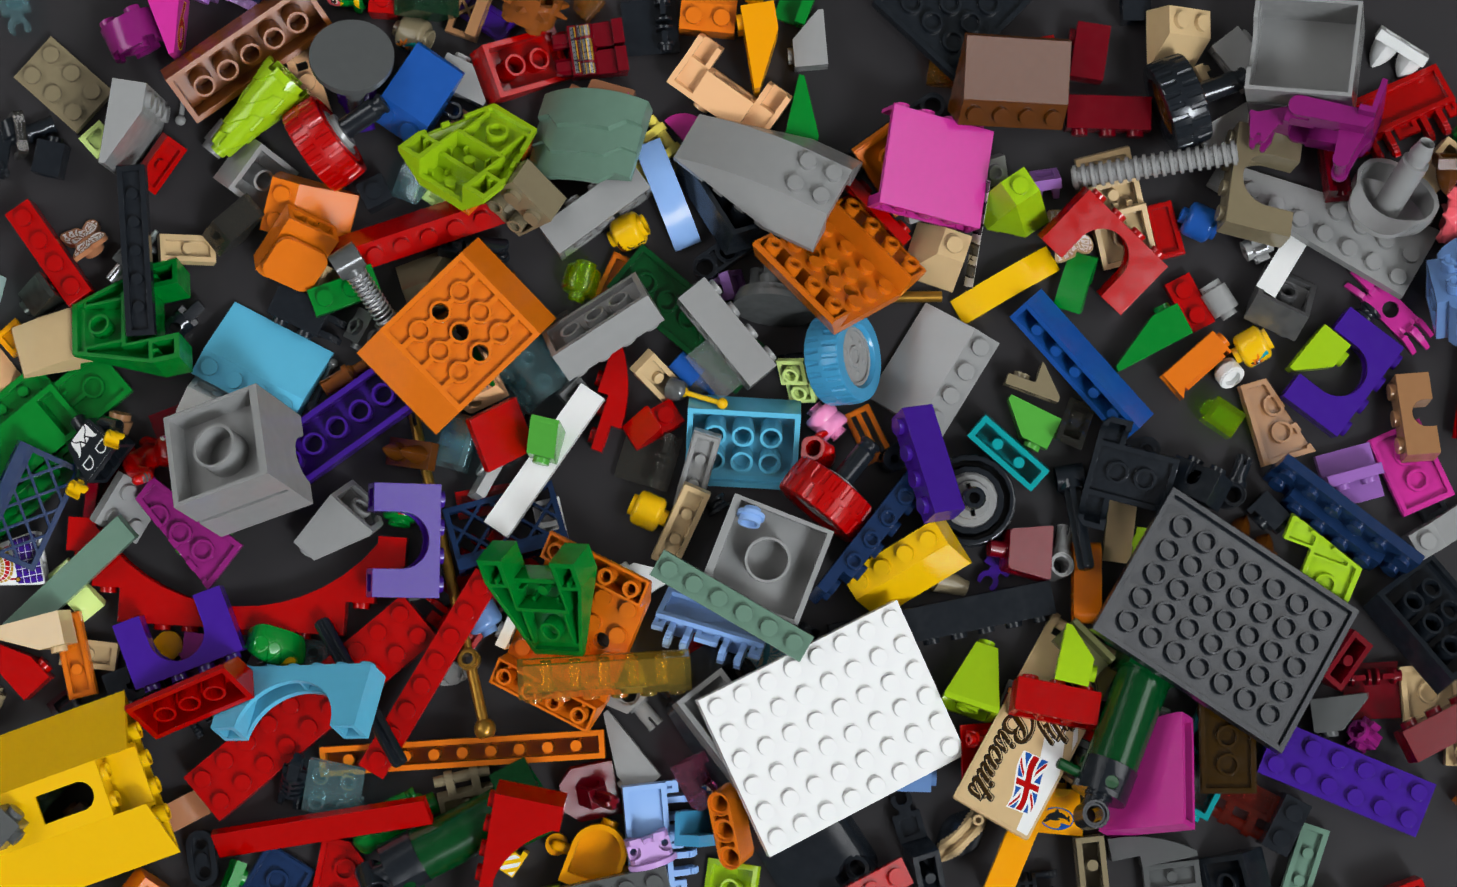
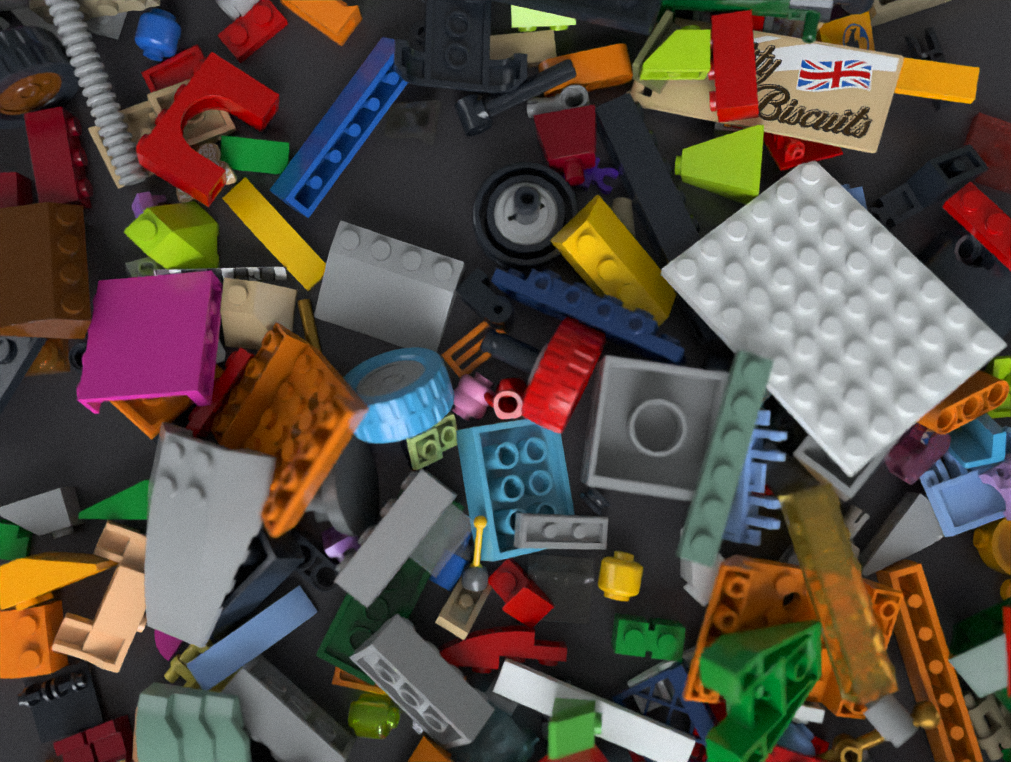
camera: 100 degrees left, 0 degrees up
(492, 695) = (890, 719): none -> light grey brick
(591, 790) = (954, 569): dark red piece -> none
(597, 509) = (634, 638): none -> green piece
(628, 231) = (305, 673): yellow head -> none
(682, 521) = (628, 535): tan plate -> none
(750, 516) = (611, 460): light blue plate -> none
(927, 463) = (498, 265): dark purple brick -> none
(960, 834) = (898, 150): tan hat -> none
(1008, 452) = (461, 185): teal brick -> none
(1032, 423) = (423, 167): bright green slope -> none
(1041, 387) = (378, 167): dark tan slope -> none
(1158, 332) = (293, 55): green slope -> none

